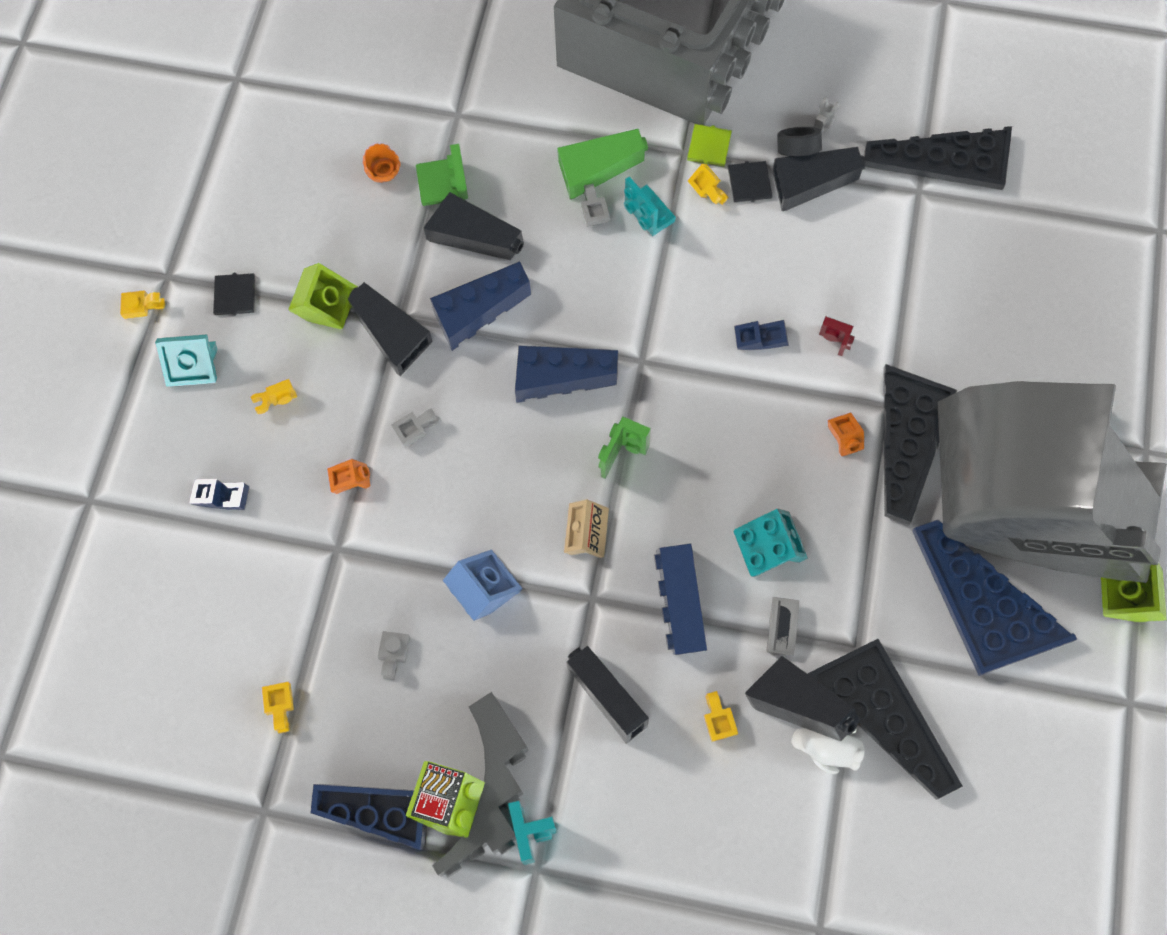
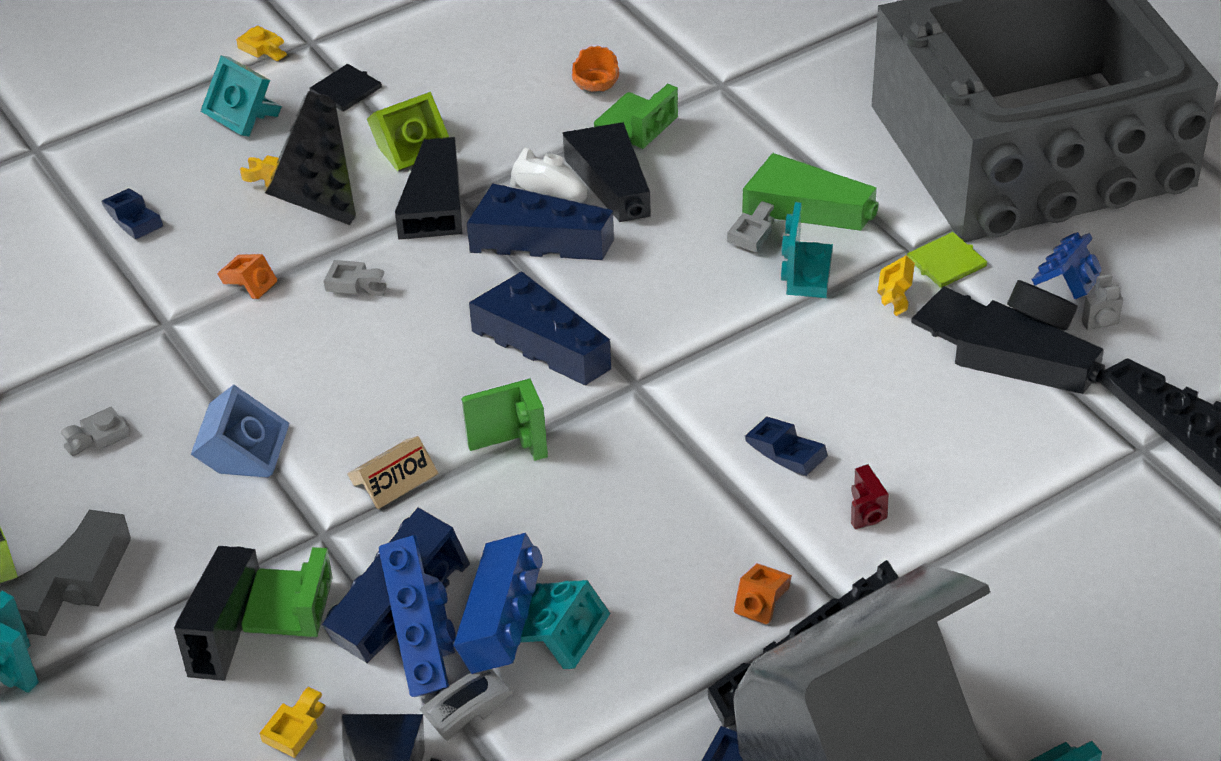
camera: 45 degrees right, 25 degrees down
(297, 369) = (314, 164): none -> black wing
(450, 266) = (547, 177): none -> white animal
(631, 653) = (290, 599): none -> bright green bracket
(721, 607) = (418, 616): none -> blue bracket
(746, 559) = (498, 603): none -> blue brick
(785, 103) = (1073, 262): none -> blue bracket

